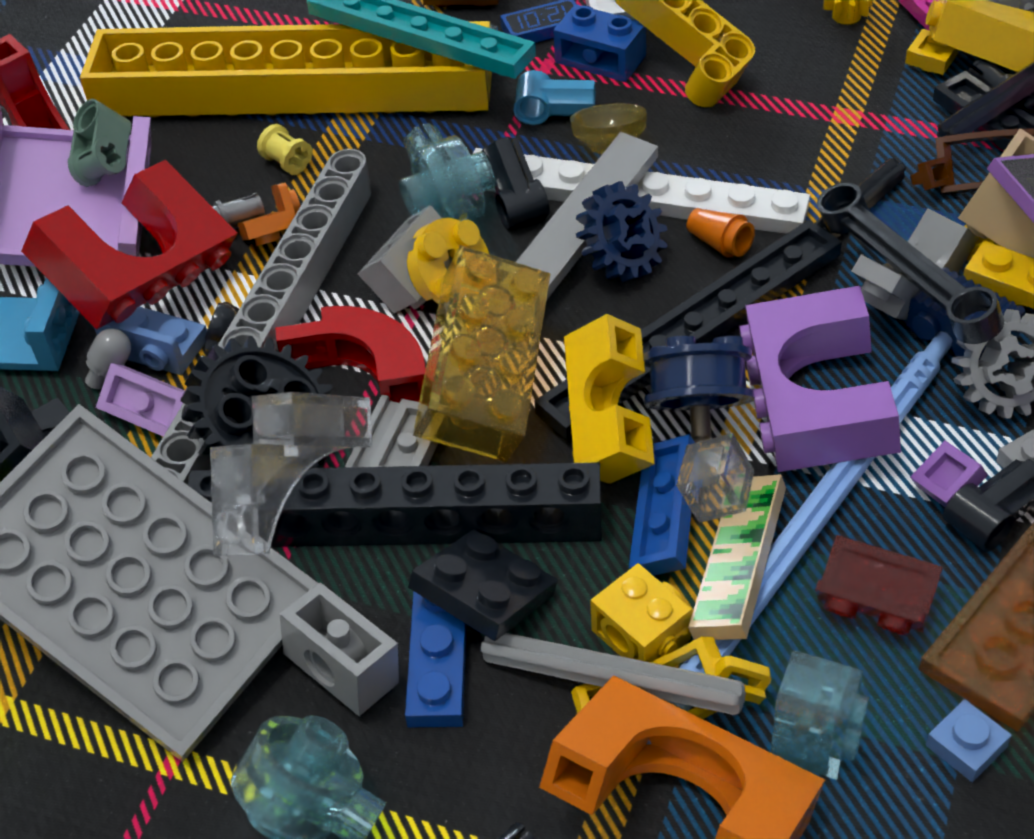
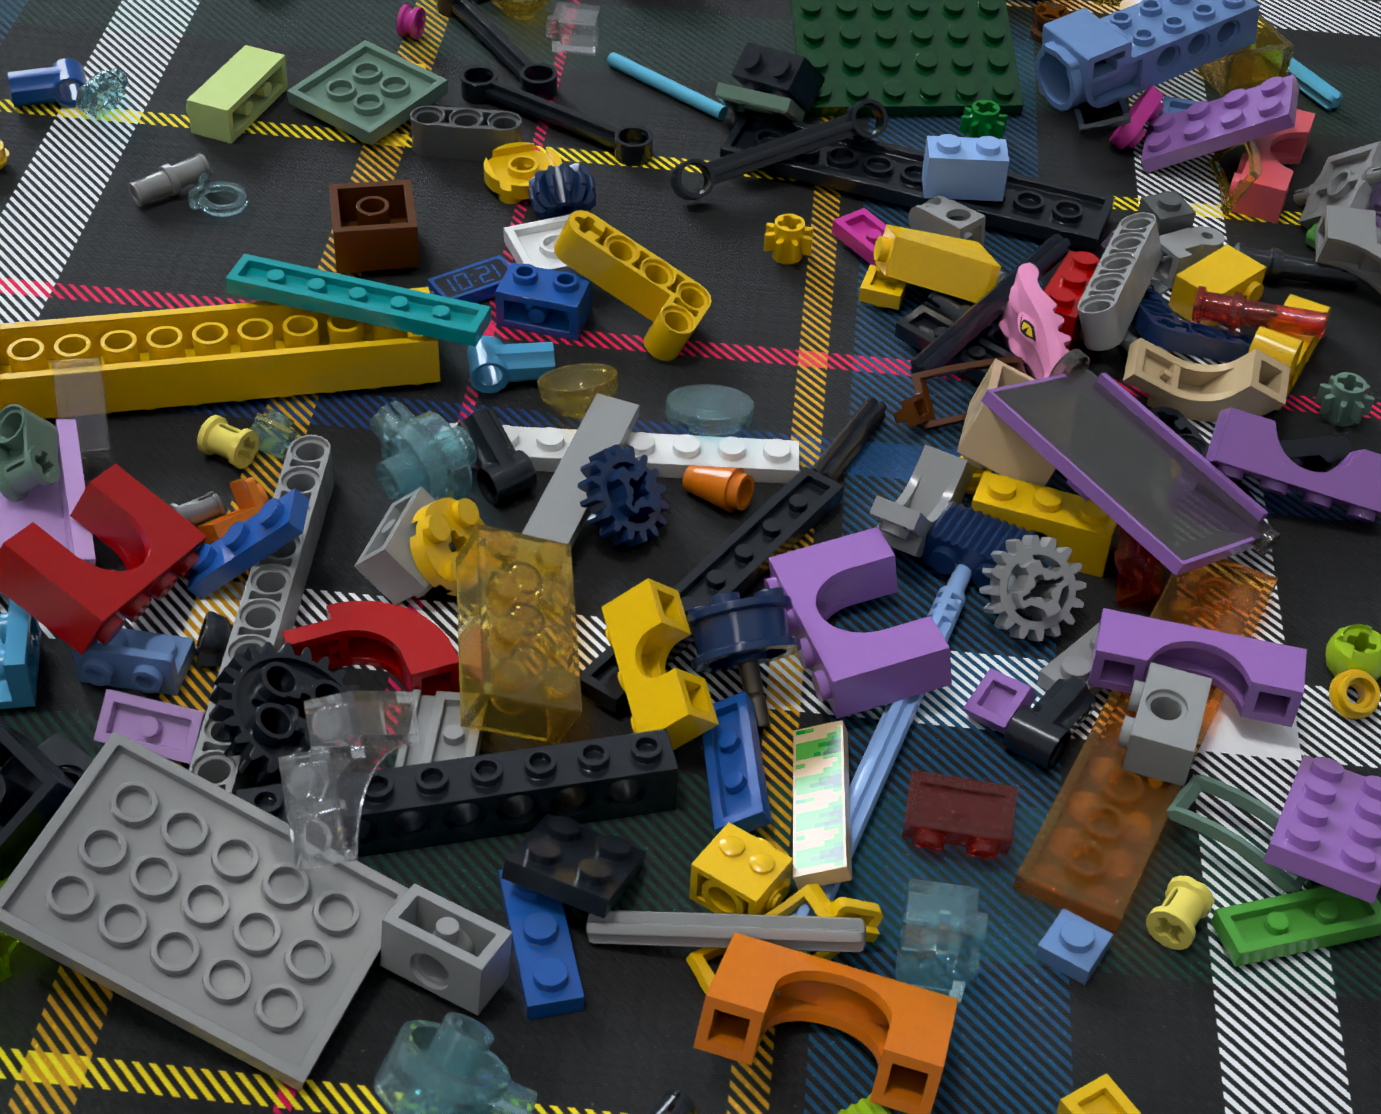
camera: 20 degrees left, 5 degrees down
(107, 348) = (95, 675): light grey cylinder -> none
(165, 104) = (82, 397): none -> clear tile
(267, 242) = (248, 543): none -> blue plate
(325, 142) = (274, 433): none -> clear light blue plate
(715, 478) = (781, 730): clear brick -> none
(730, 156) = (709, 409): none -> clear light blue tile
(912, 264) = (922, 498): black piece -> none

